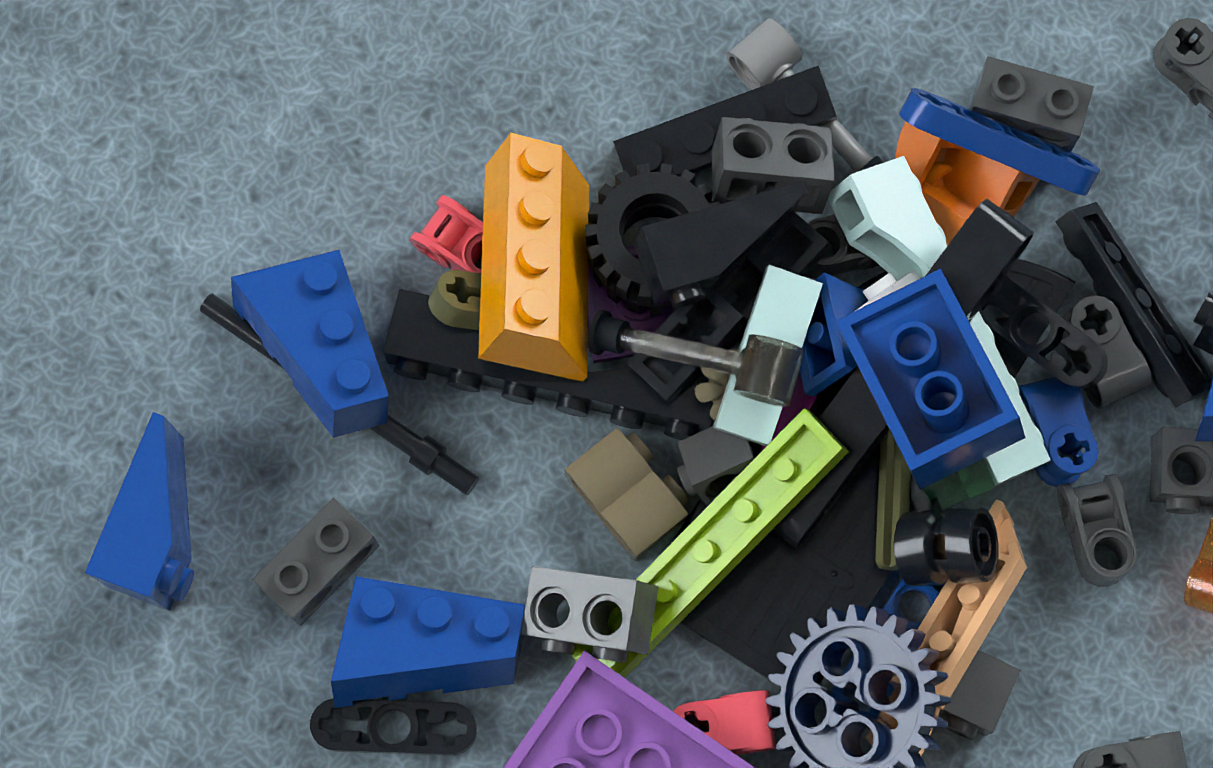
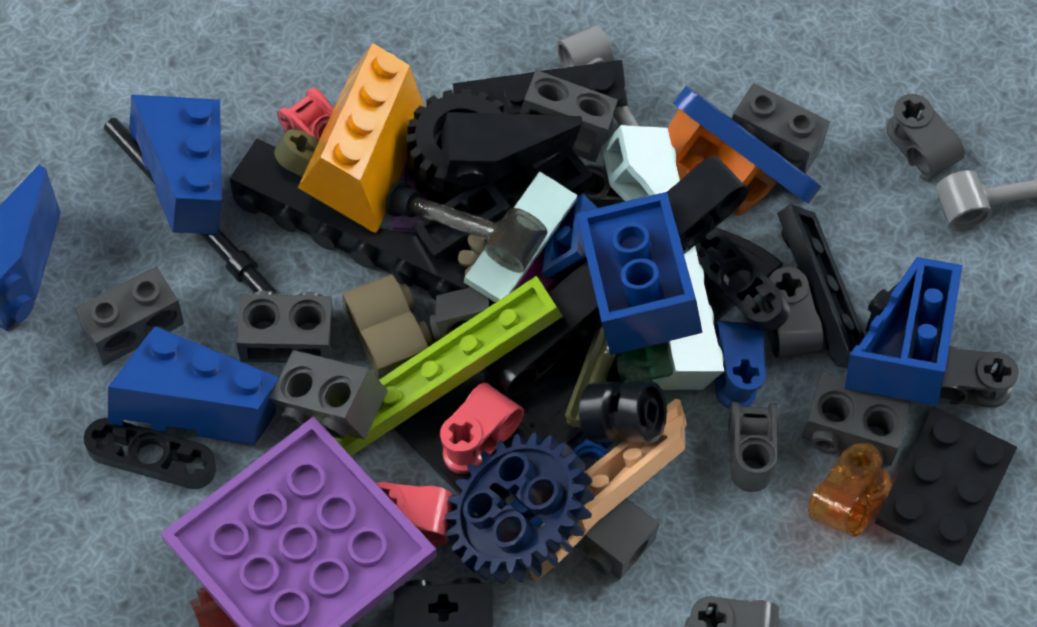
camera: 10 degrees right, 15 degrees down
(510, 541) = (284, 335): none -> dark grey brick
(778, 592) = (477, 427): none -> coral piece

